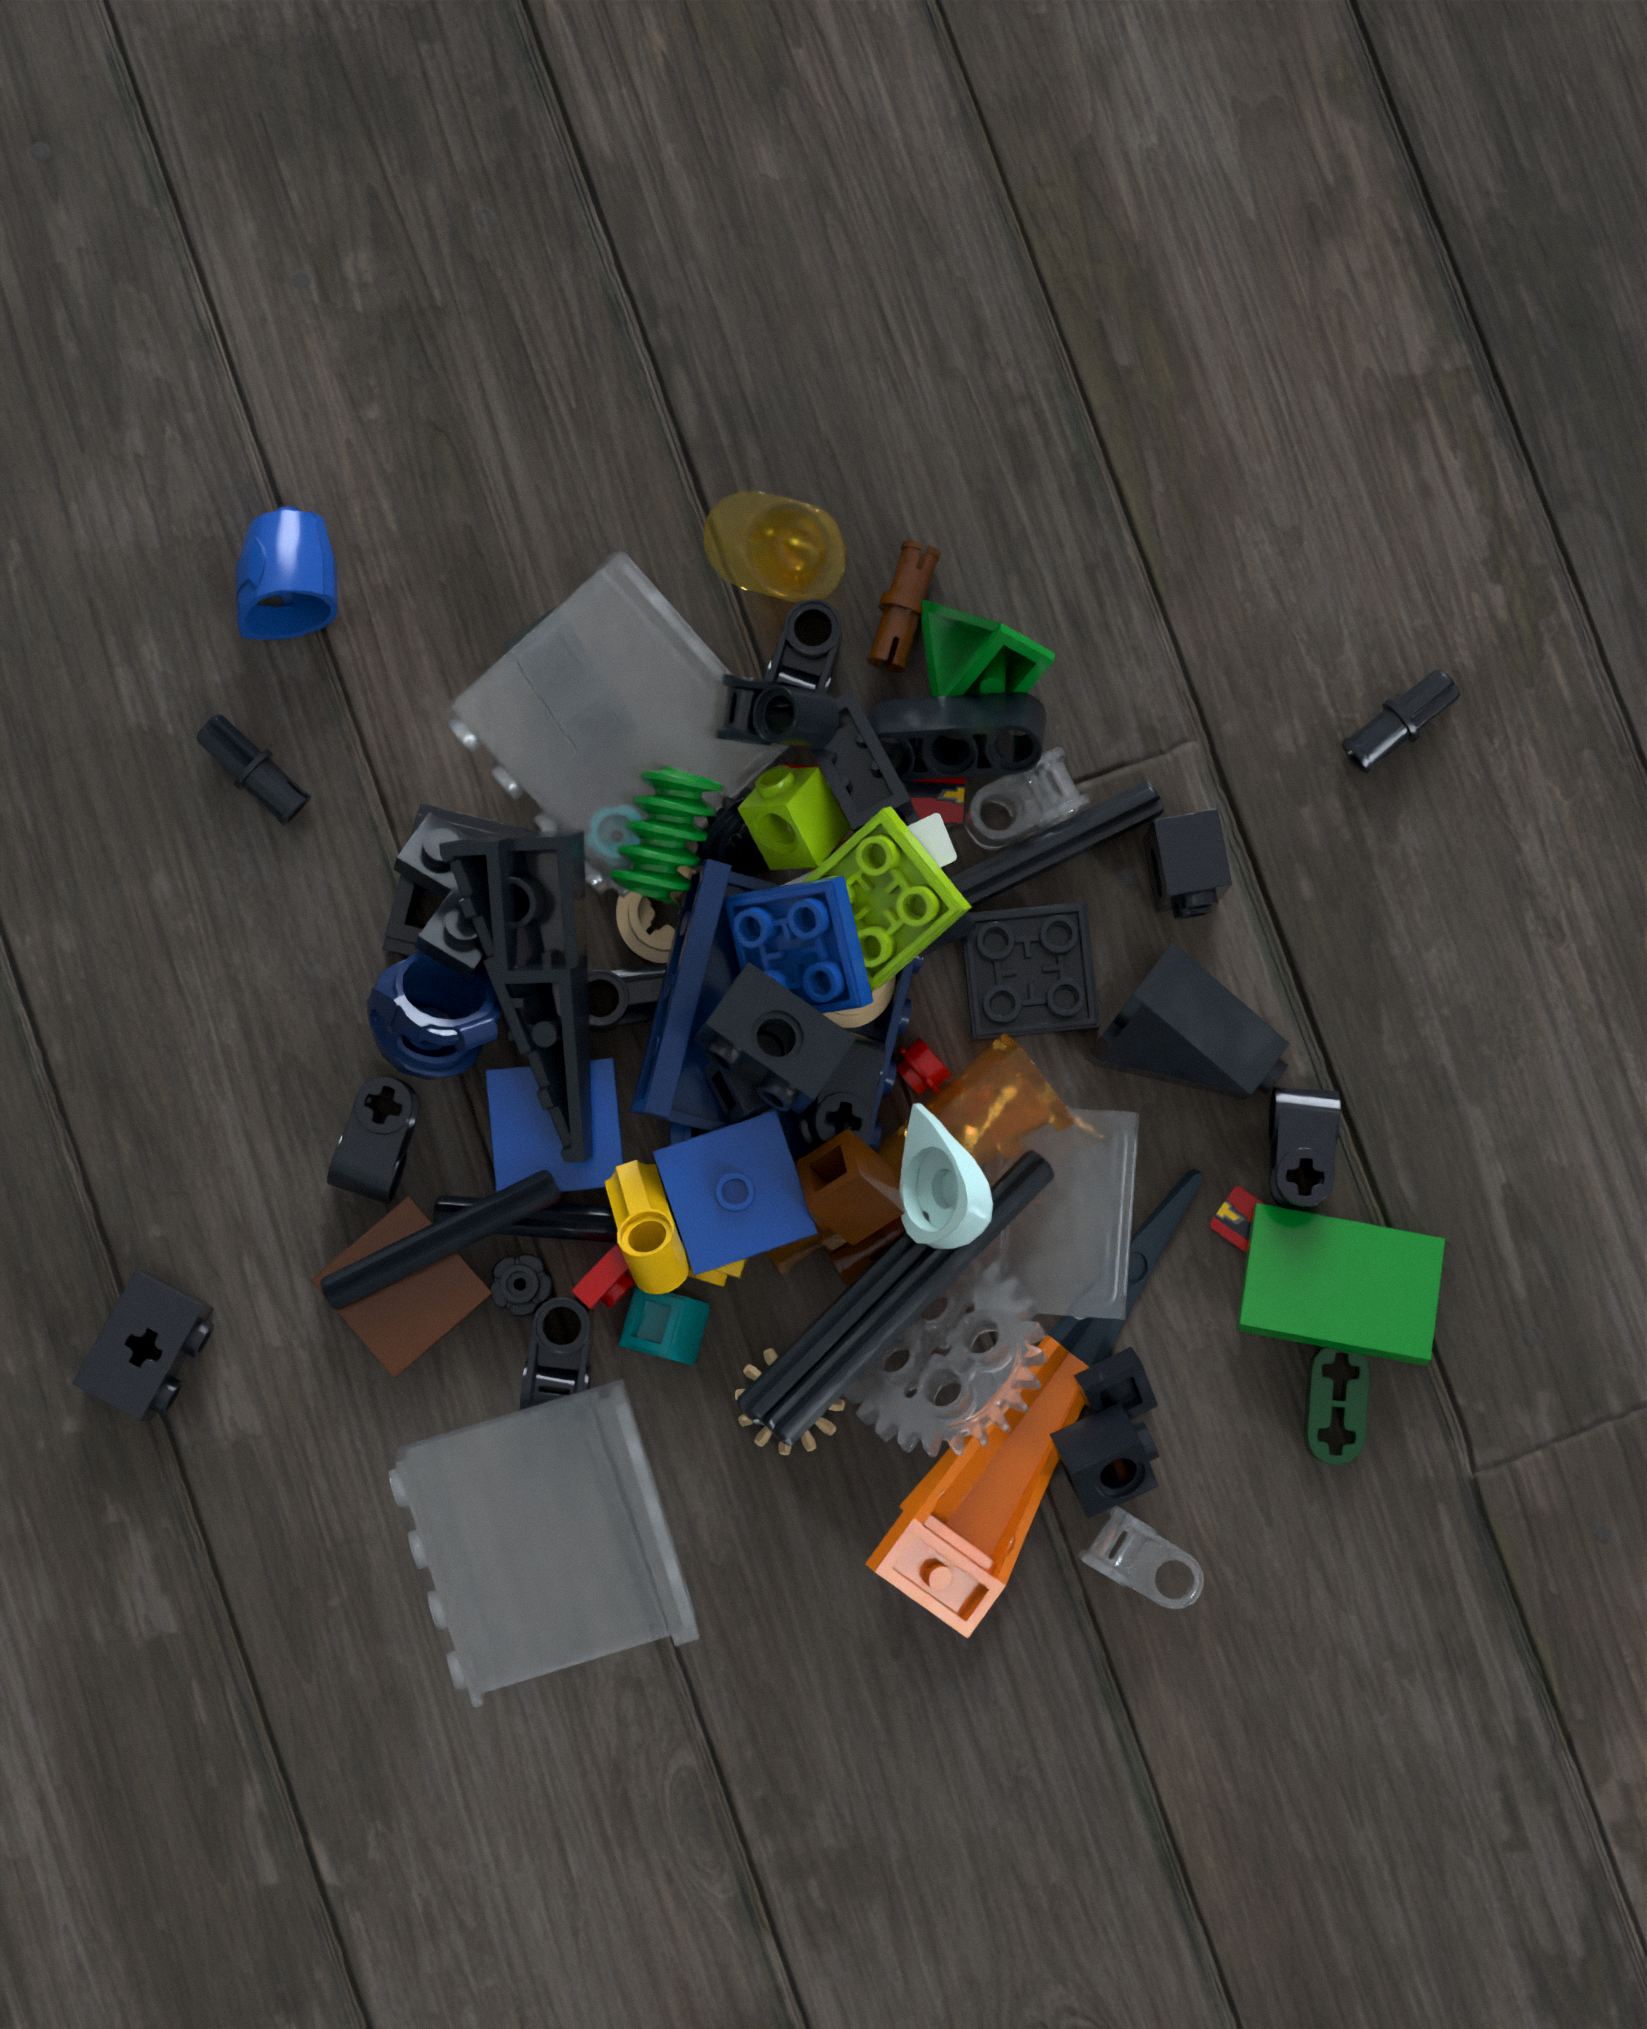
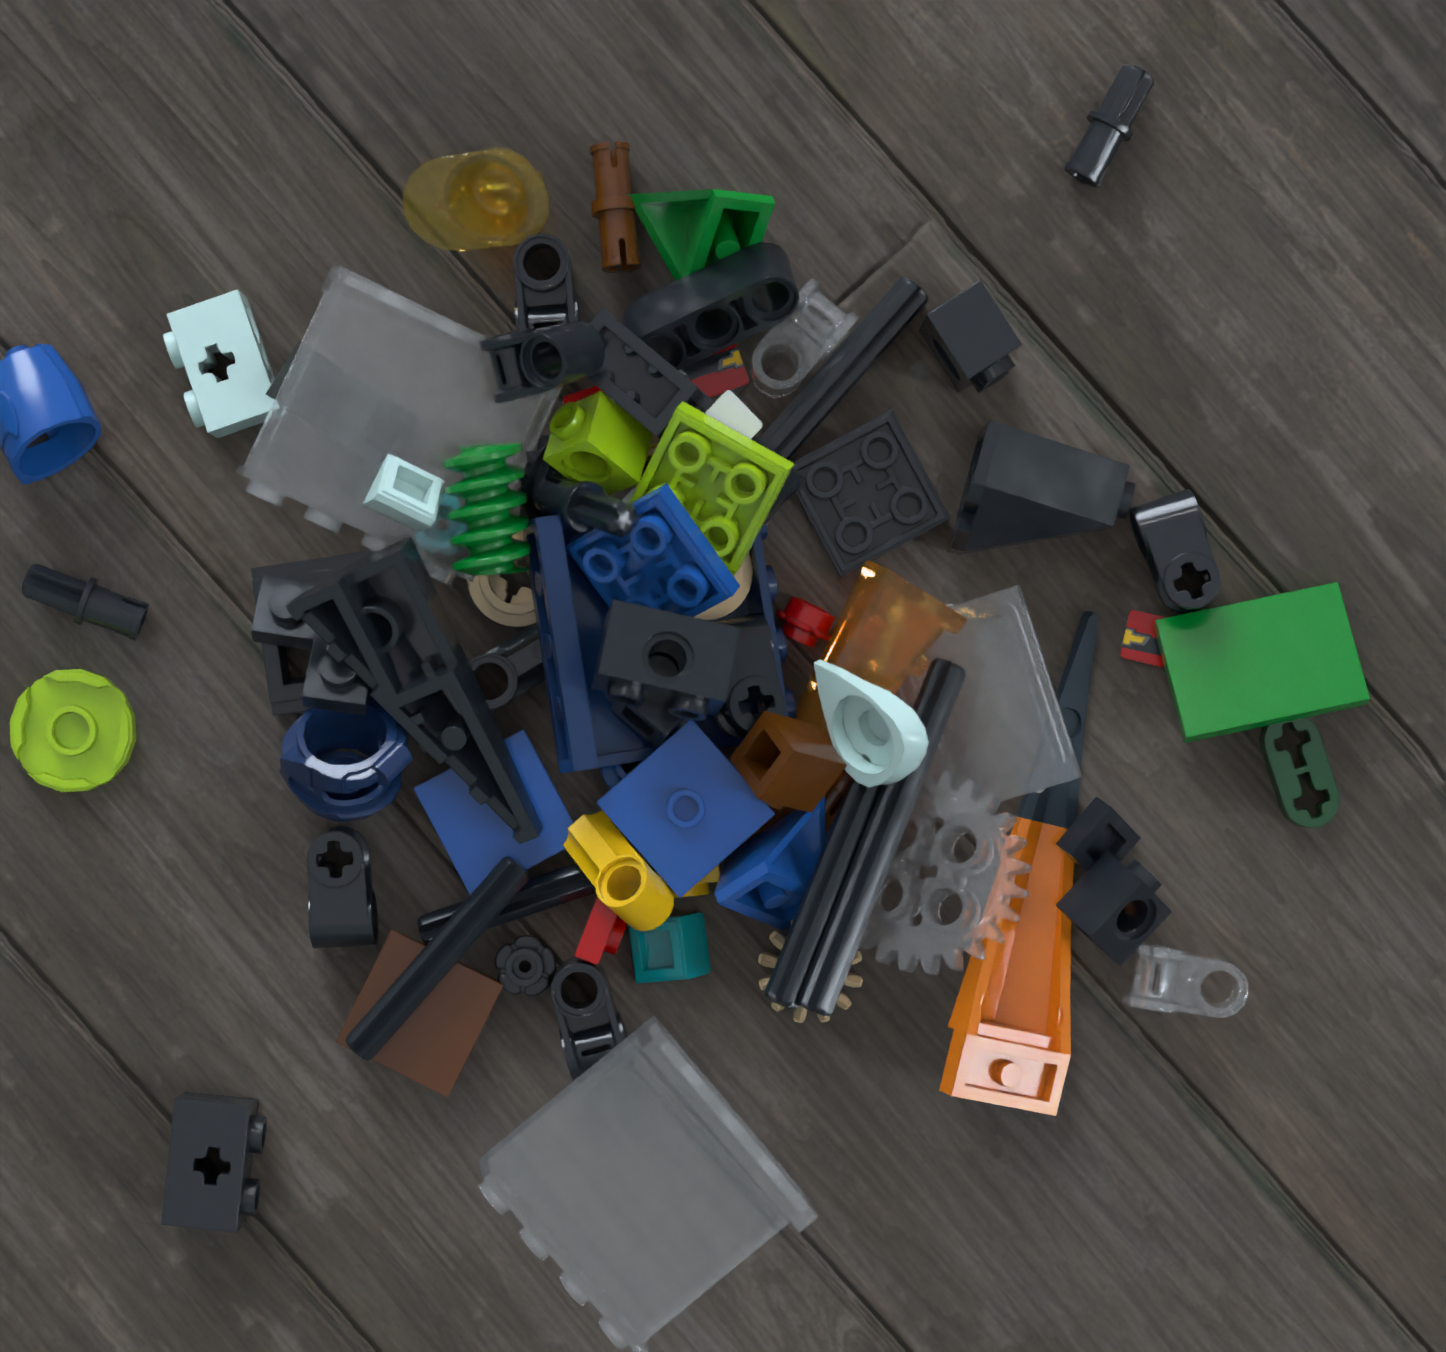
camera: 25 degrees left, 5 degrees up
(188, 886) = (73, 730): none -> lime tile
(476, 565) = (229, 328): none -> light aqua brick
(595, 788) = (405, 493): none -> light aqua slope
(757, 866) = (583, 505): none -> black axle
(793, 1287) = (773, 868): none -> blue slope

